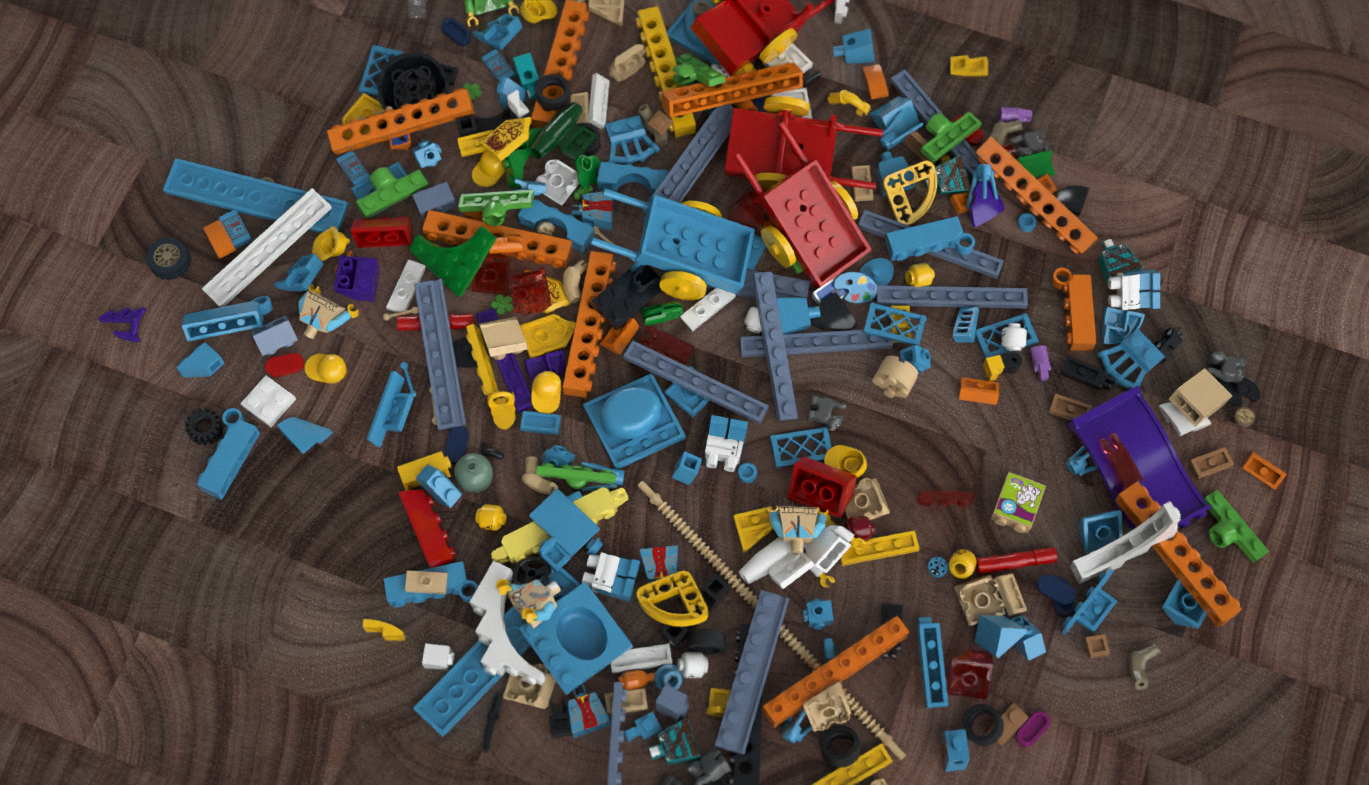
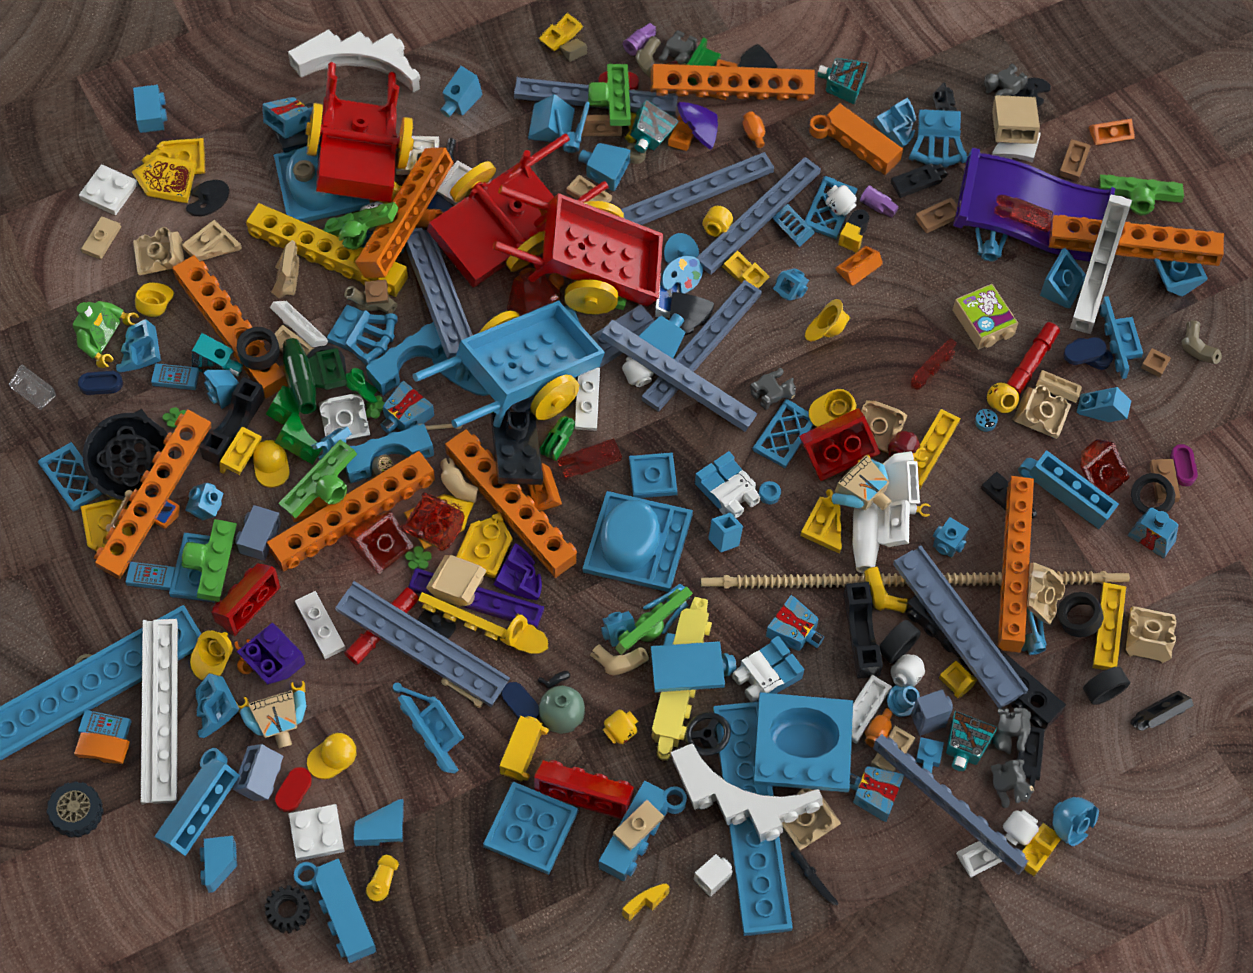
camera: 50 degrees left, 5 degrees down
(125, 317) = (103, 890): dark purple piece -> none
(264, 465) = (380, 883): none -> yellow piece
(375, 521) = (530, 828): none -> dark azure plate
(414, 310) = (354, 633): tan hinge -> none
(438, 486) = (553, 744): dark azure brick -> none
(454, 264) = (344, 562): green plate -> none
(507, 137) = (266, 419): yellow tile -> none
(507, 244) = (371, 504): orange hinge -> none
(516, 104) = (242, 385): white slope -> none
(531, 599) = (740, 747): torso -> none
(540, 423) = (565, 617): dark azure tile -> none
(546, 392) = (541, 587): yellow cap -> none
(553, 554) = (709, 699): dark azure bracket -> none
(560, 722) = (864, 820): black plate -> none
(682, 589) = (837, 621): yellow beam -> none
(696, 382) = (651, 462): sand blue plate -> none
(732, 601) = (879, 596): none -> yellow arm
(829, 650) = (988, 557): dark azure tile -> none
(847, 97) = (499, 138): yellow piece -> none
(875, 81) = (505, 107): orange slope -> none
(895, 377) = (794, 310): tan brick -> none
(898, 190) = (627, 169): yellow beam -> none
(899, 338) = (769, 262): dark azure window -> none
(911, 407) = (829, 322): none -> yellow piece
(928, 238) = (693, 185): dark azure hinge -> none
(964, 84) = (574, 49): none -> dark tan slope
(983, 173) = (678, 98): dark azure plant -> none
(997, 634) = (1087, 421): dark azure slope -> none
(1017, 239) = (754, 128): none -> orange plant
(1026, 222) = (741, 108): dark azure tile -> none
(1135, 290) = (883, 84): hips -> none
(1244, 417) = (1056, 107): tile -> none

